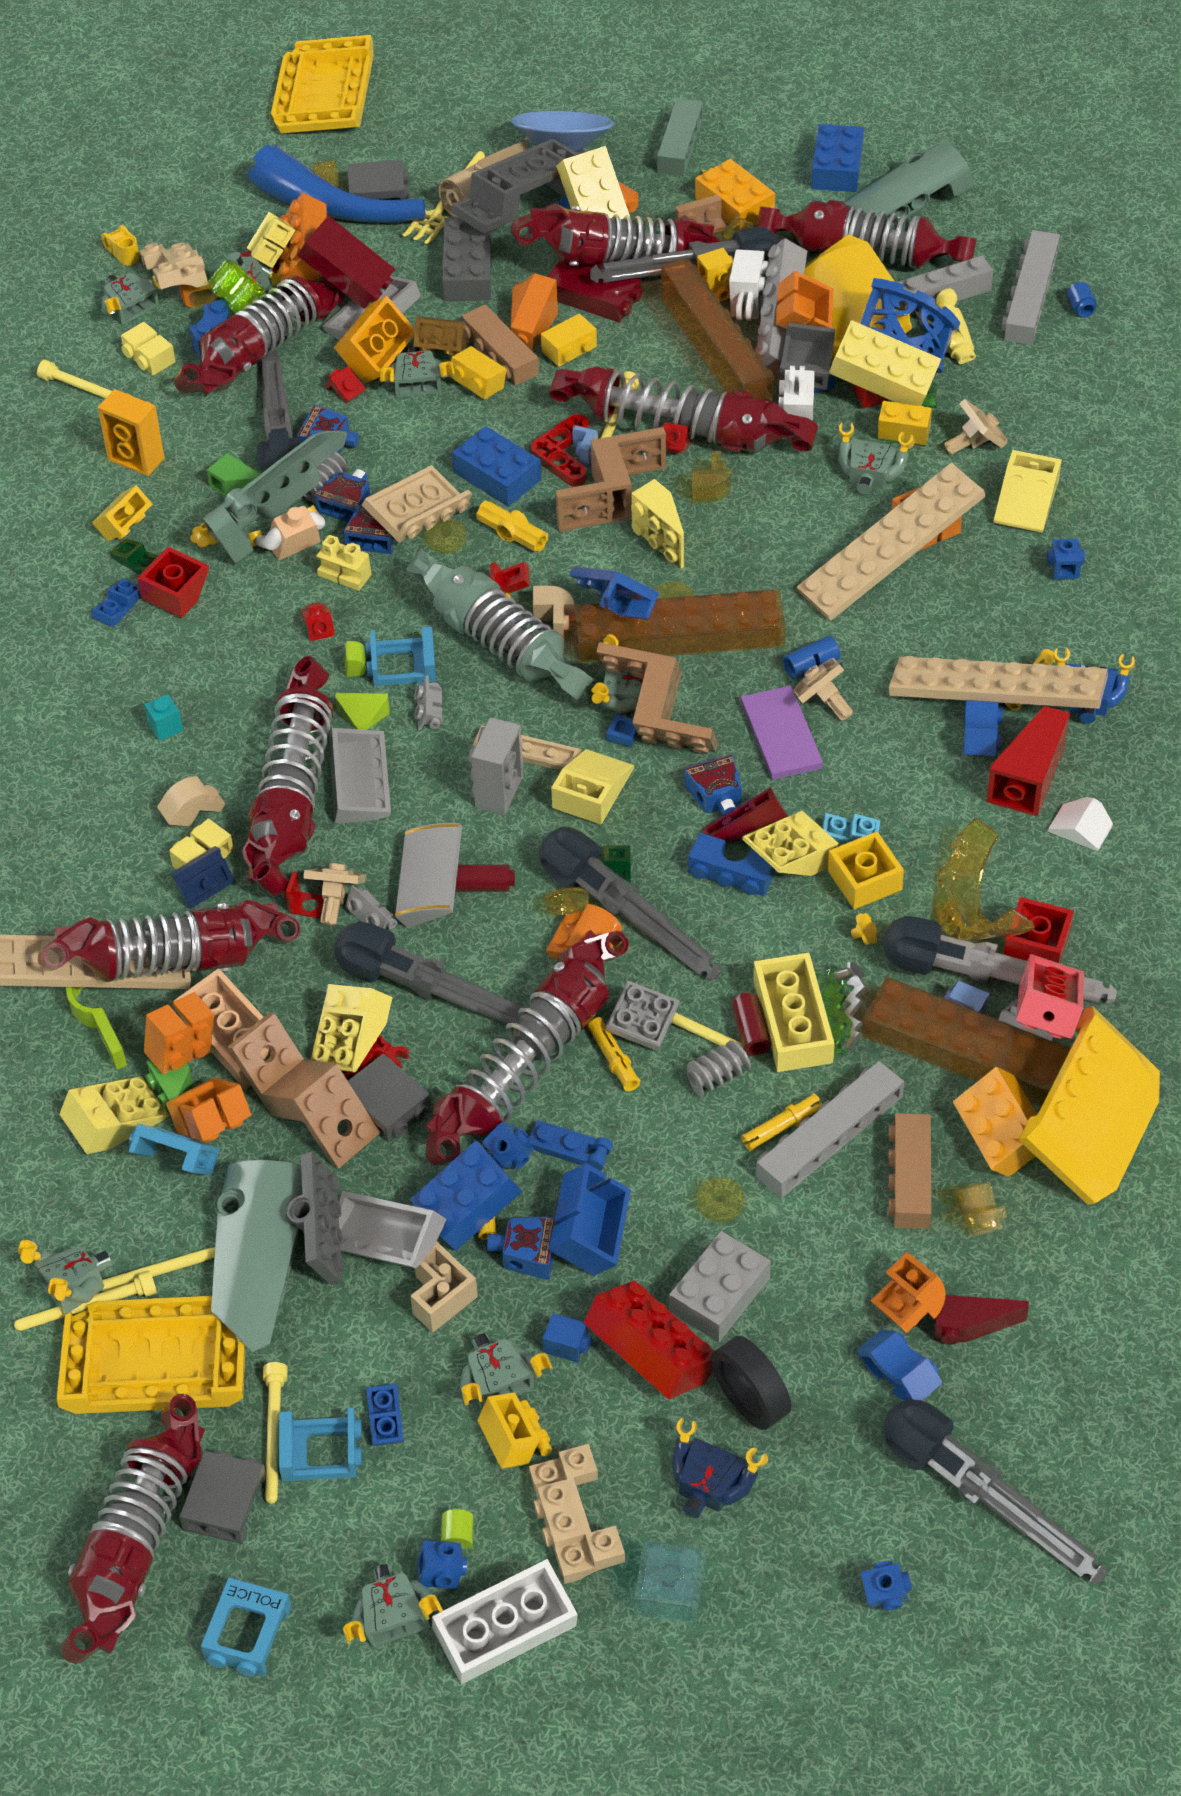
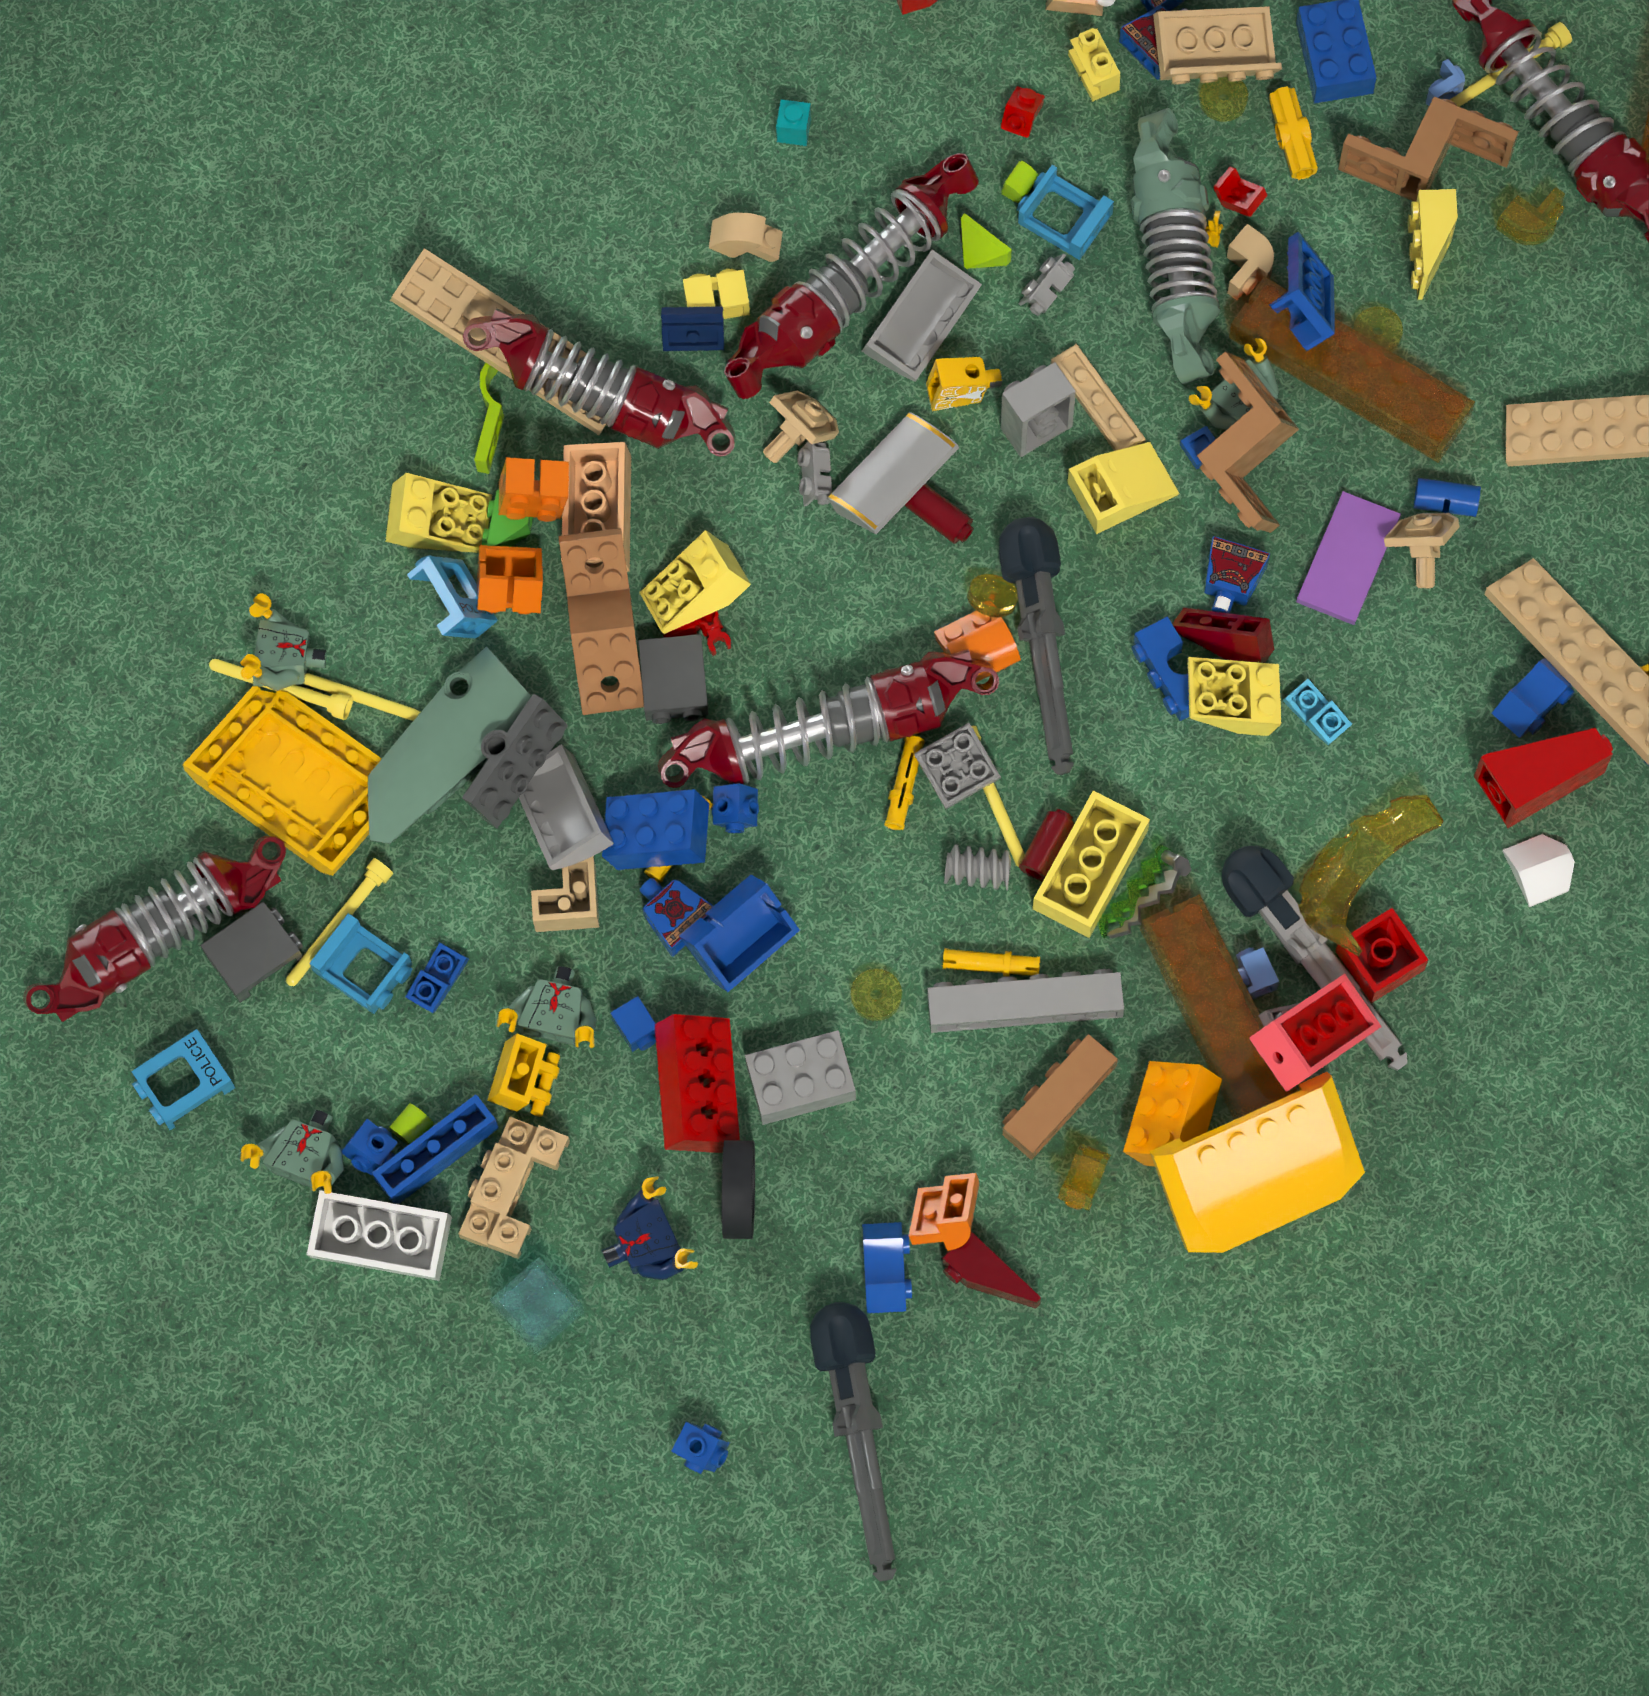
camera: 40 degrees right, 20 degrees up
(296, 897) = (758, 409): red bracket -> none
(371, 953) = (771, 522): piece -> none
(423, 792) = (960, 382): none -> yellow torso
(494, 1527) = (435, 1150): none -> blue brick
(556, 451) = (1417, 64): red beam -> none
(569, 1145) = (792, 841): blue plate -> none
(618, 860) = (1074, 589): dark green slope -> none
(676, 437) = (1534, 144): red bracket -> none
(865, 870) = (1285, 768): yellow brick -> none
(865, 928) = (1235, 828): yellow plant -> none

